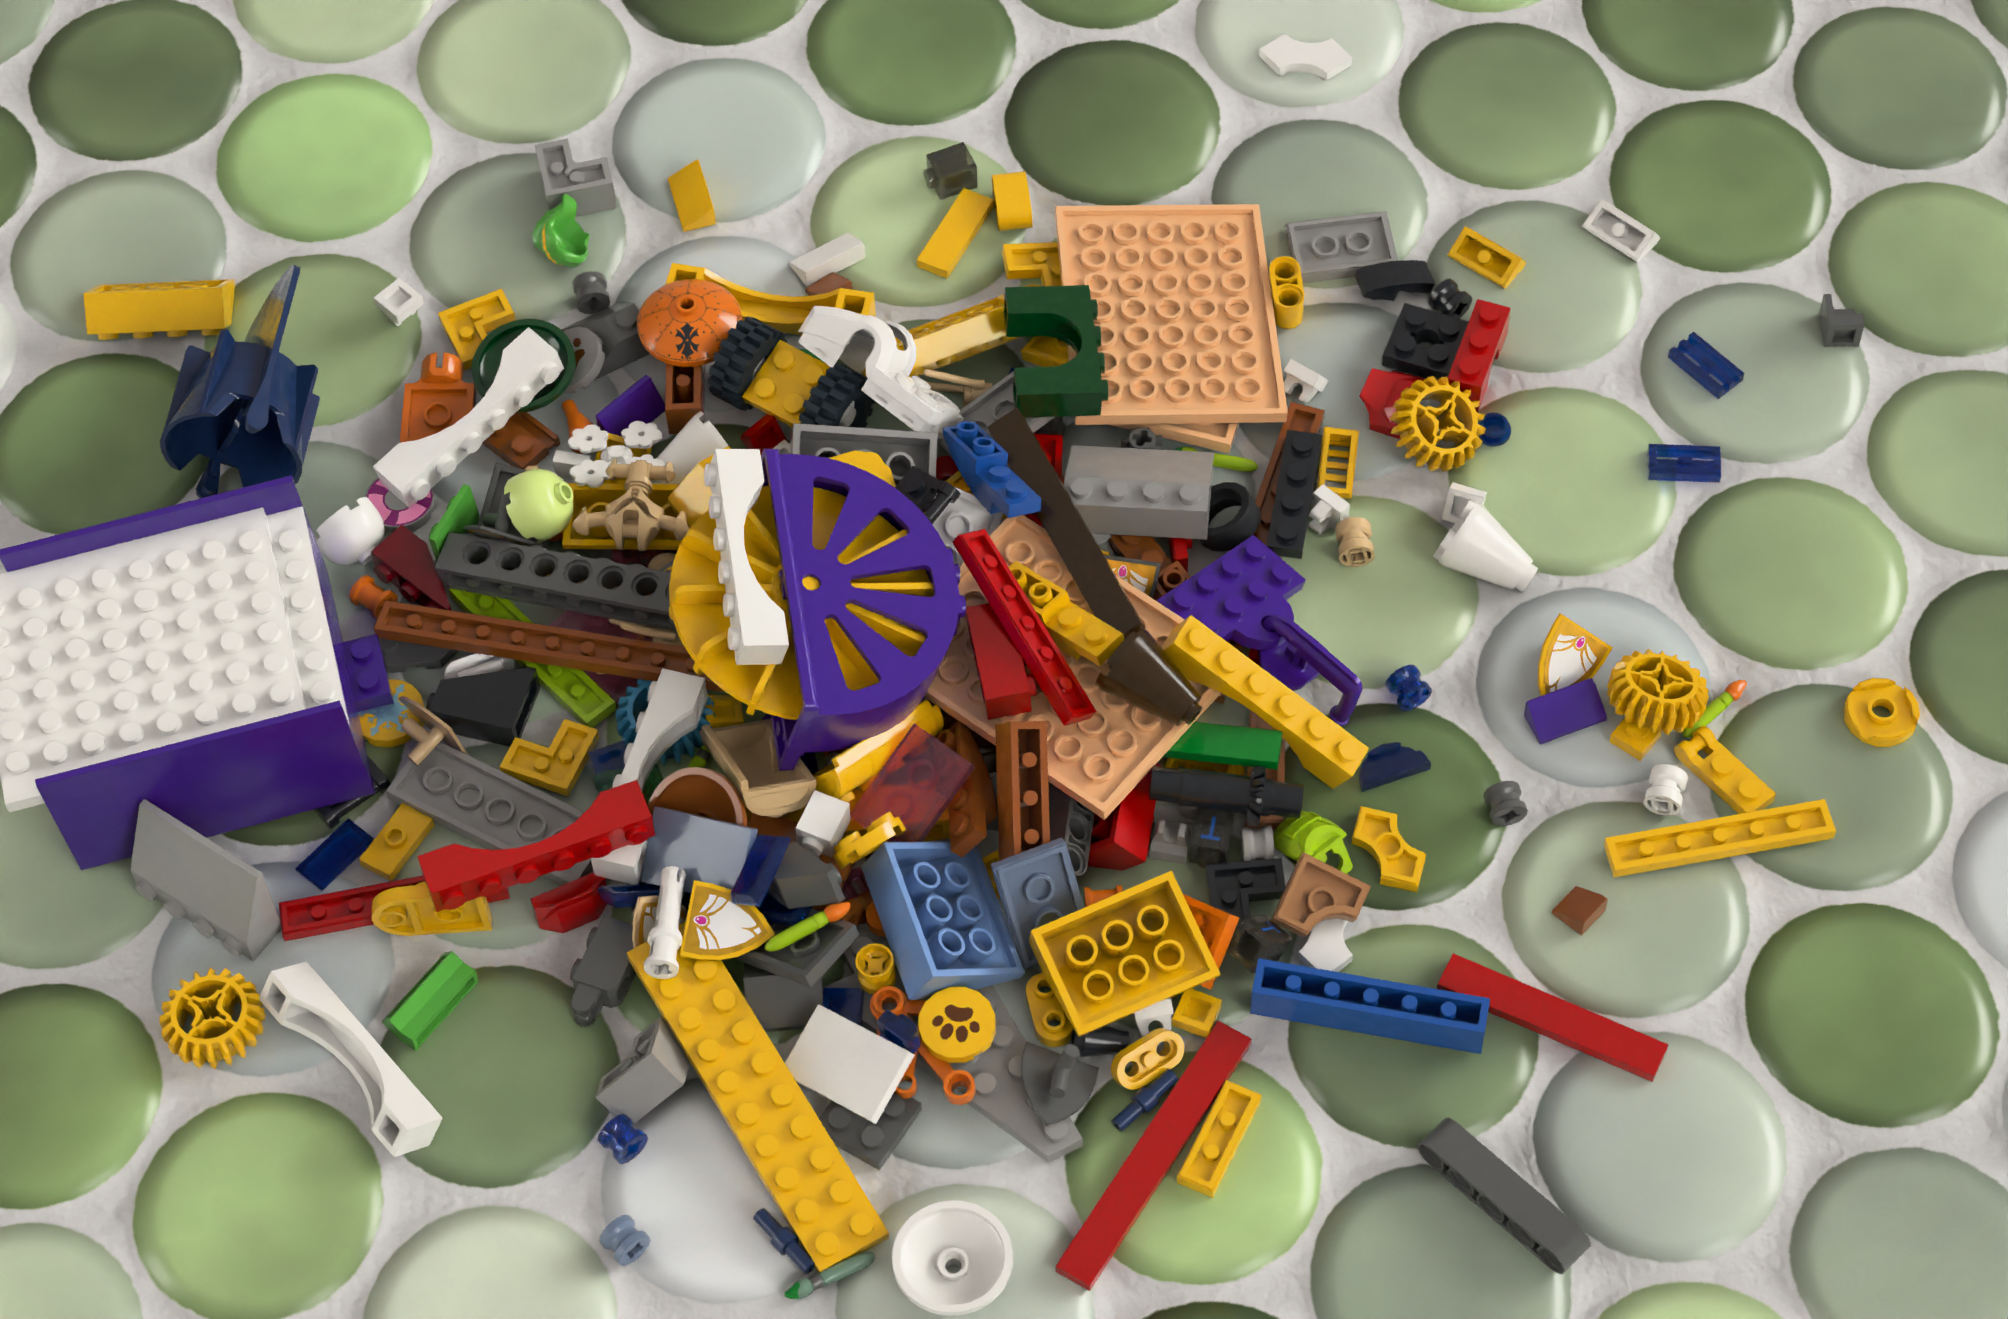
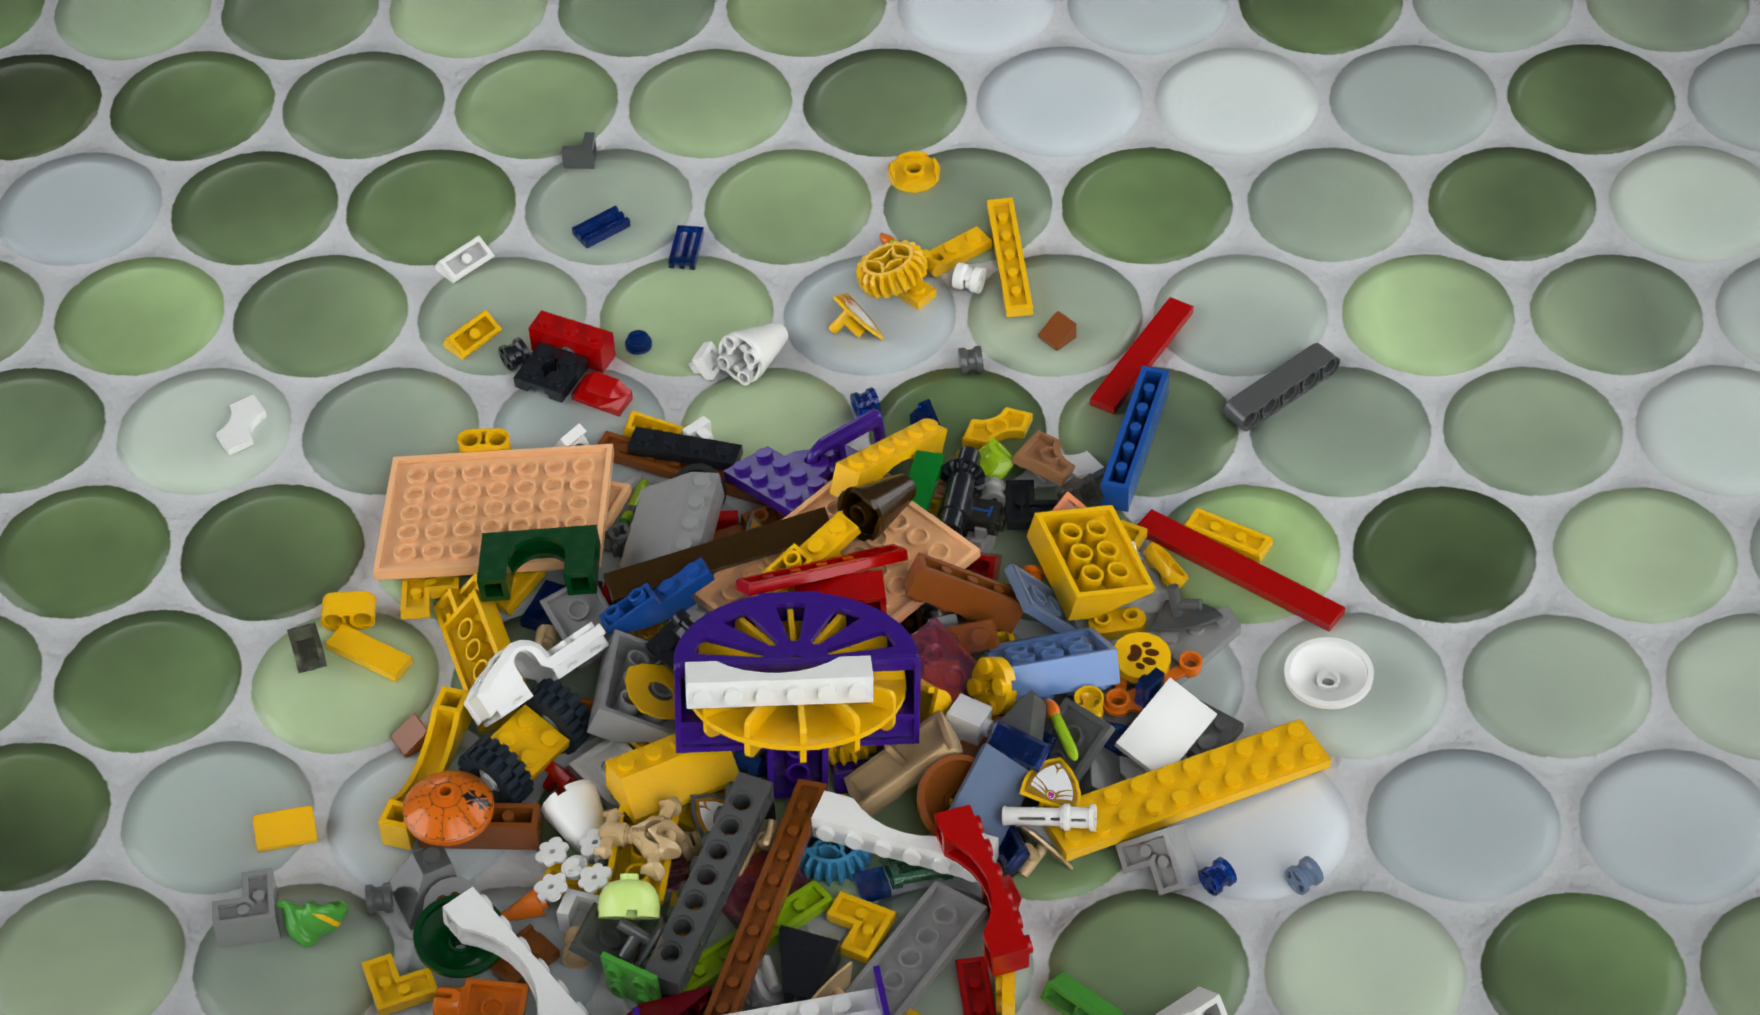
camera: 85 degrees left, 10 degrees down
(604, 970) = (1065, 887): dark grey hinge -> none
(637, 403) = (511, 871): dark purple slope -> none
(784, 1240) = (1304, 782): dark blue bar -> none
(805, 1286) = (1340, 771): sand green piece -> none
(828, 258) = (375, 737): white slope -> none
(1101, 1041) = (1149, 602): black cone -> none
(1144, 1100) = (1196, 572): dark blue bar -> none
(1340, 245) = (440, 416): light grey tile -> none
(1355, 543) = (730, 423): tan wheel -> none
(1388, 278) = (486, 385): black slope -> none
(1420, 427) = (636, 363): yellow gear -> none
(1565, 711) = (894, 326): dark purple slope -> none

